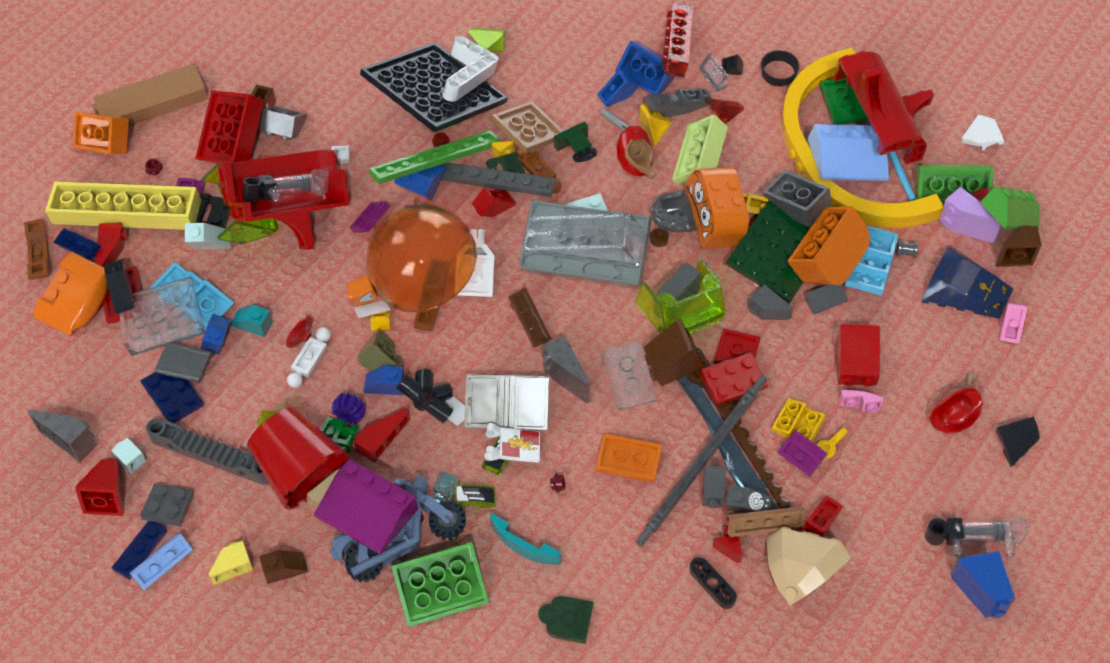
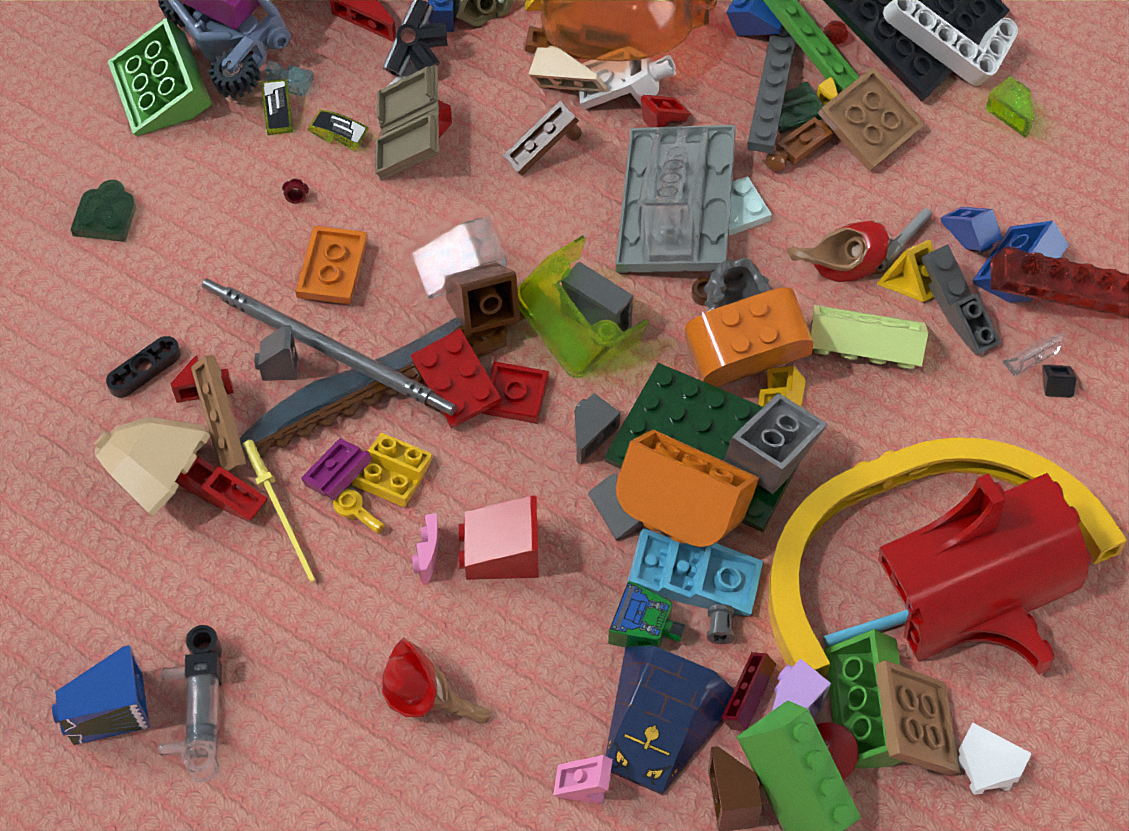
camera: 85 degrees right, 0 degrees up
(466, 301) = (559, 70): none -> tan slope
(489, 38) = (1032, 65): lime slope -> none
(492, 202) = (735, 92): red slope -> none
(509, 245) = (661, 109): none -> red slope
(514, 444) = (349, 142): flag -> none
(520, 52) = (1012, 105): none -> clear neon green slope
(544, 555) = (225, 135): teal slope -> none
(565, 368) = (459, 181): flat silver slope -> none
(577, 139) = (857, 173): dark green piece -> none
(724, 109) = (961, 363): clear red slope -> none
(747, 500) = (256, 397): dark grey slope -> none
(784, 56) = (1074, 421): black tyre -> none
(810, 497) = (264, 480): none -> light yellow sword
(847, 153) = (878, 512): light blue slope -> none
(906, 287) = (643, 619): none -> torso
(950, 238) = (748, 691): none -> dark red piece
(970, 156) = (917, 718): none -> medium nougat plate
(1018, 438) = (366, 777): black slope -> none

